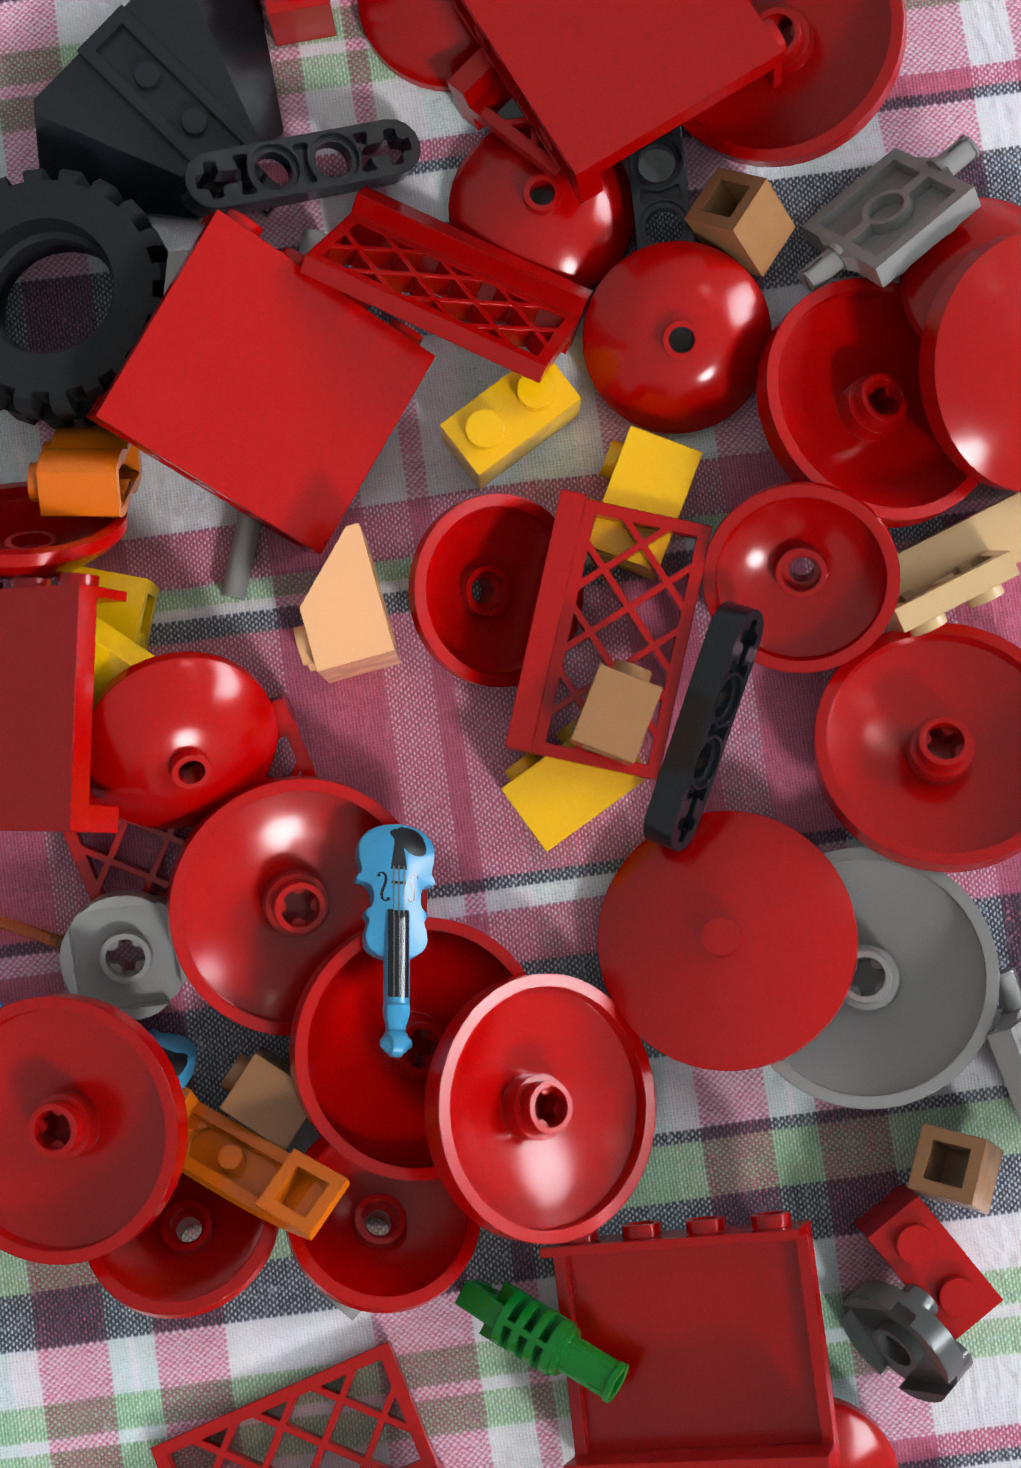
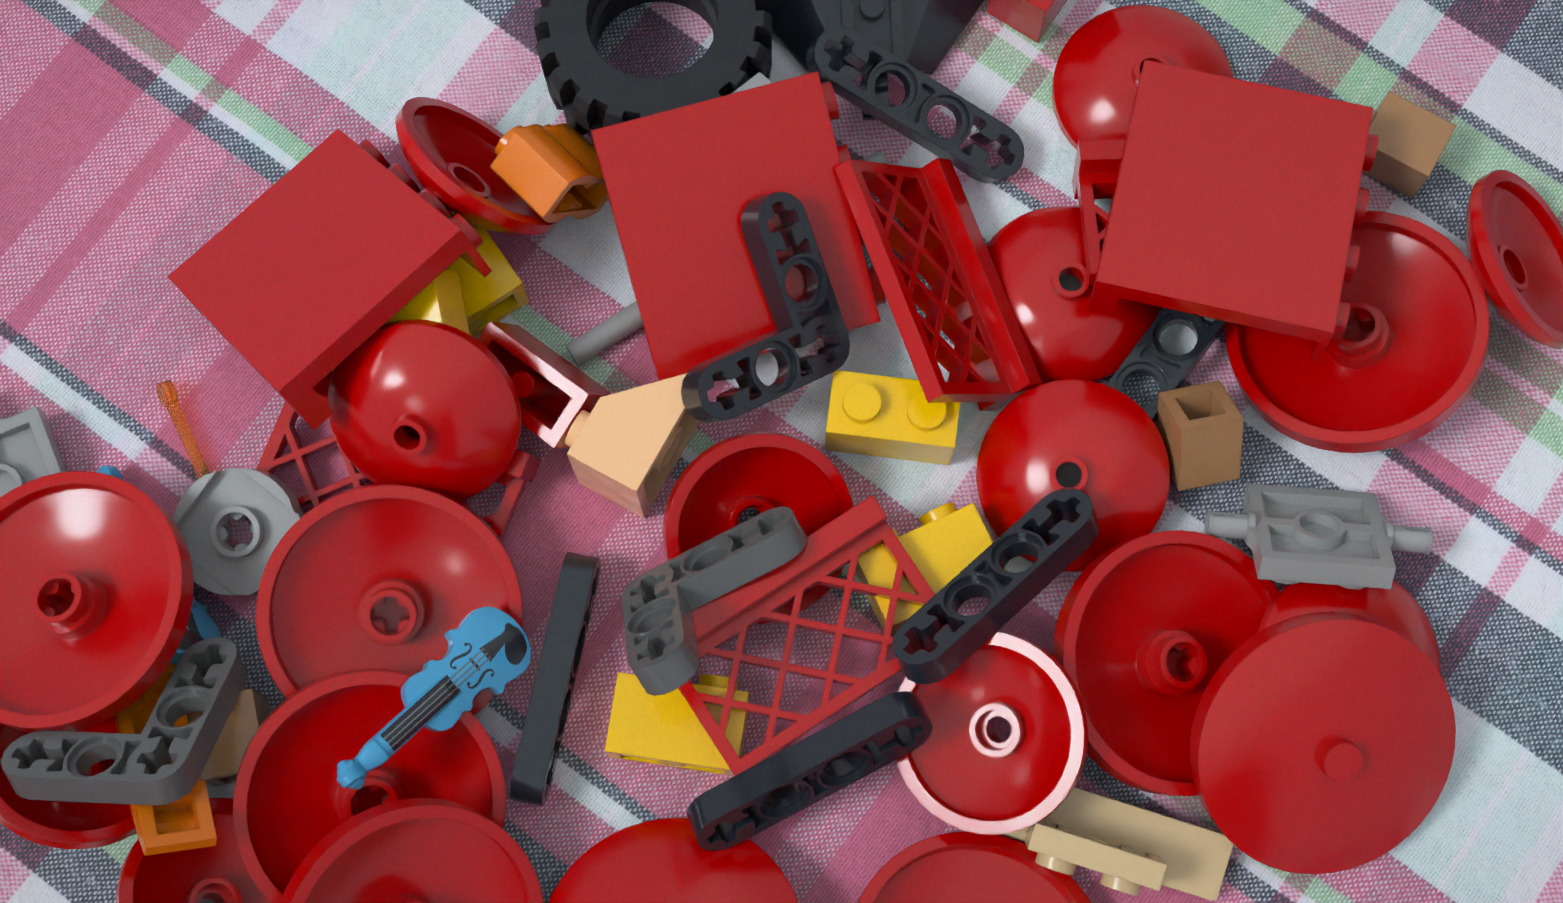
camera: 45 degrees right, 10 degrees down
(230, 1179) = (54, 762): none -> dark grey beam
(248, 633) = (547, 384): none -> red brick
(380, 415) = (795, 321): none -> black beam
(456, 835) = (555, 679): none -> black beam
(491, 682) = (661, 600): none -> dark grey beam
(616, 712) = (751, 692): medium nougat brick -> none
(720, 466) = (988, 579): none -> black beam

